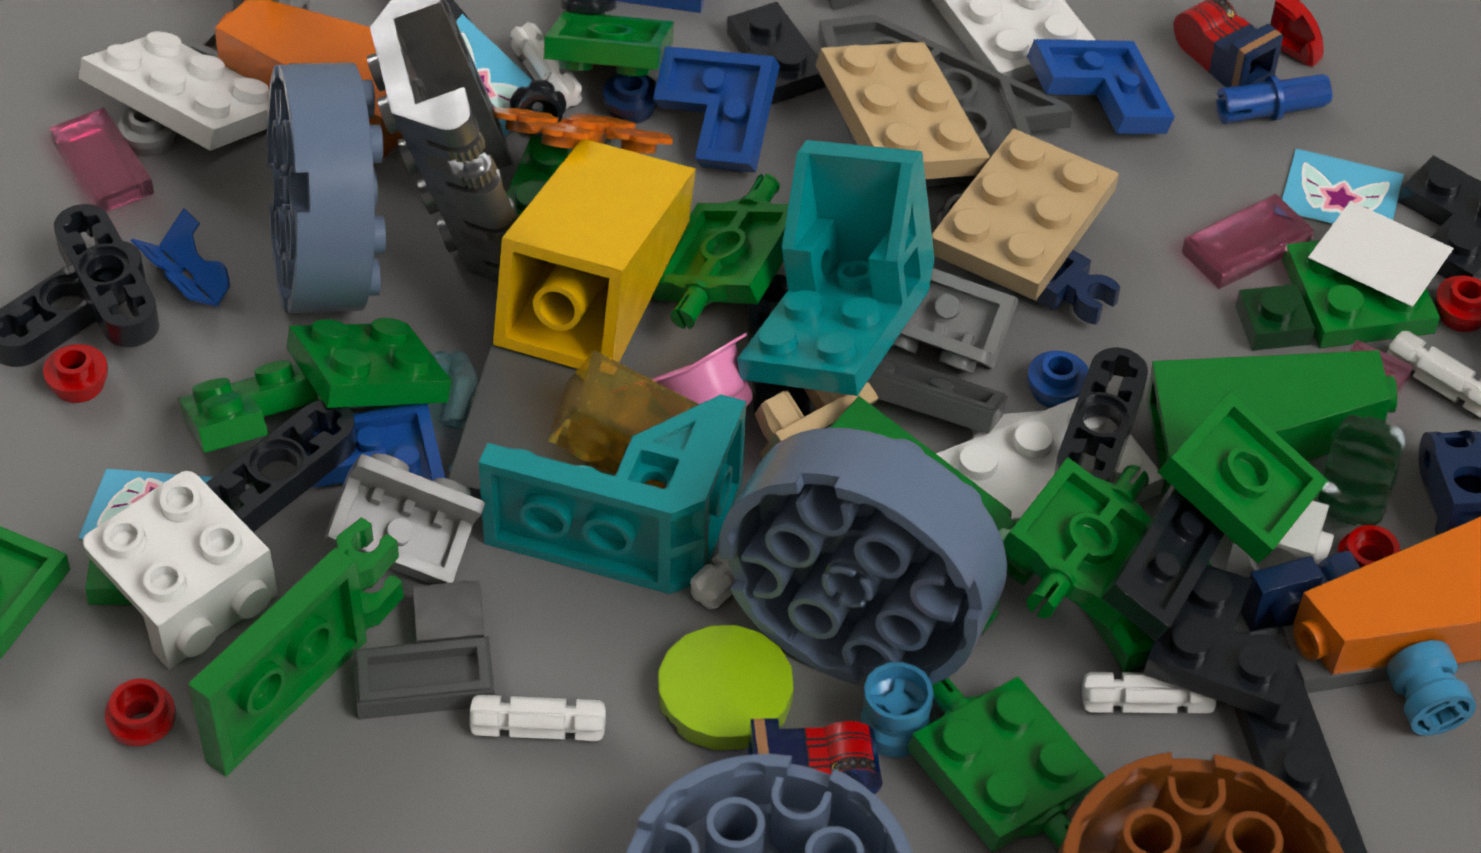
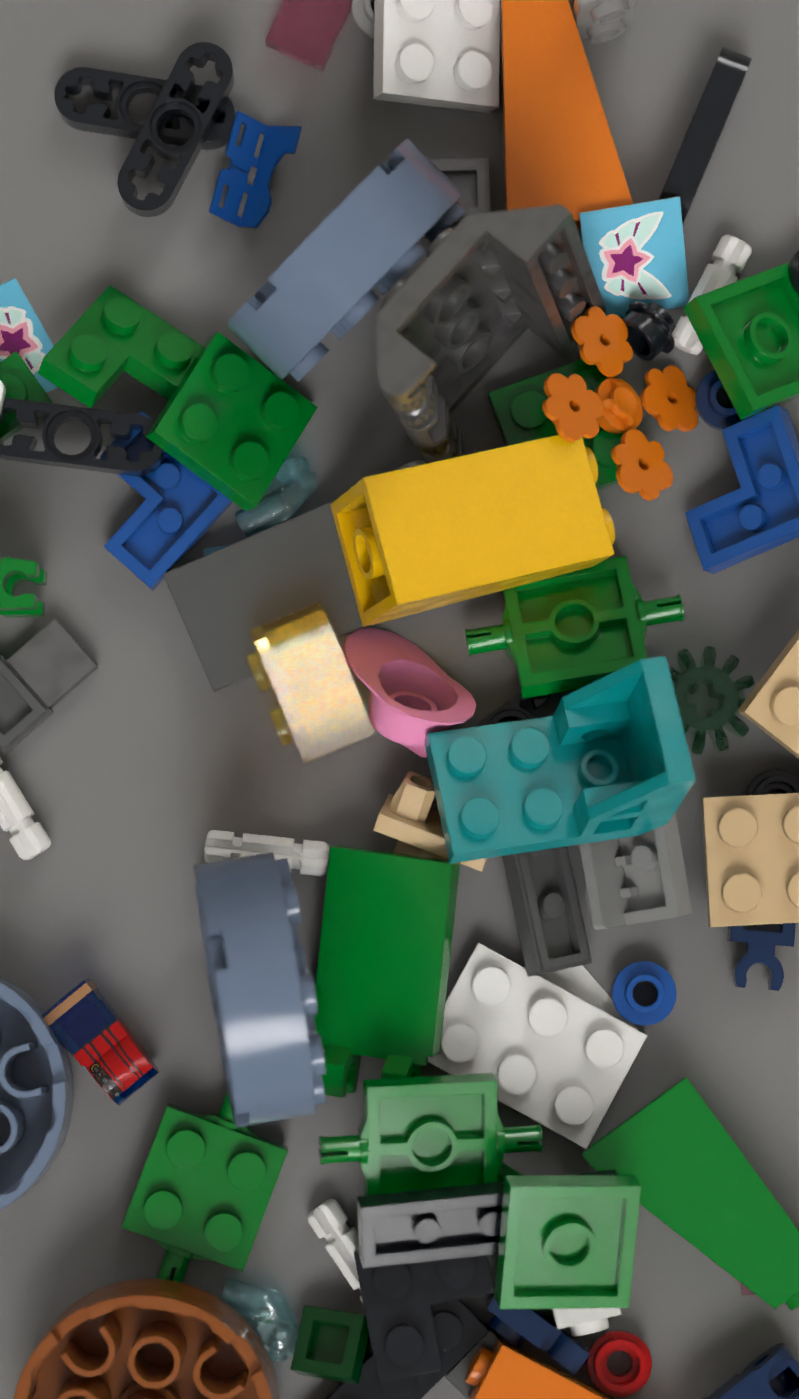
camera: 60 degrees right, 35 degrees up
(76, 372) = (83, 197): red plate -> none
(421, 514) = (91, 573): light grey bracket -> none
(617, 521) = (276, 774): teal bracket -> none
(720, 682) = (133, 923): lime tile -> none
(896, 706) = (182, 1081): dark azure wheel -> none
(1096, 401) = (630, 1045): black beam -> none
(1220, 731) = (330, 1345): none -> dark green plate
(1362, 470) = (690, 1318): clear green gear -> none

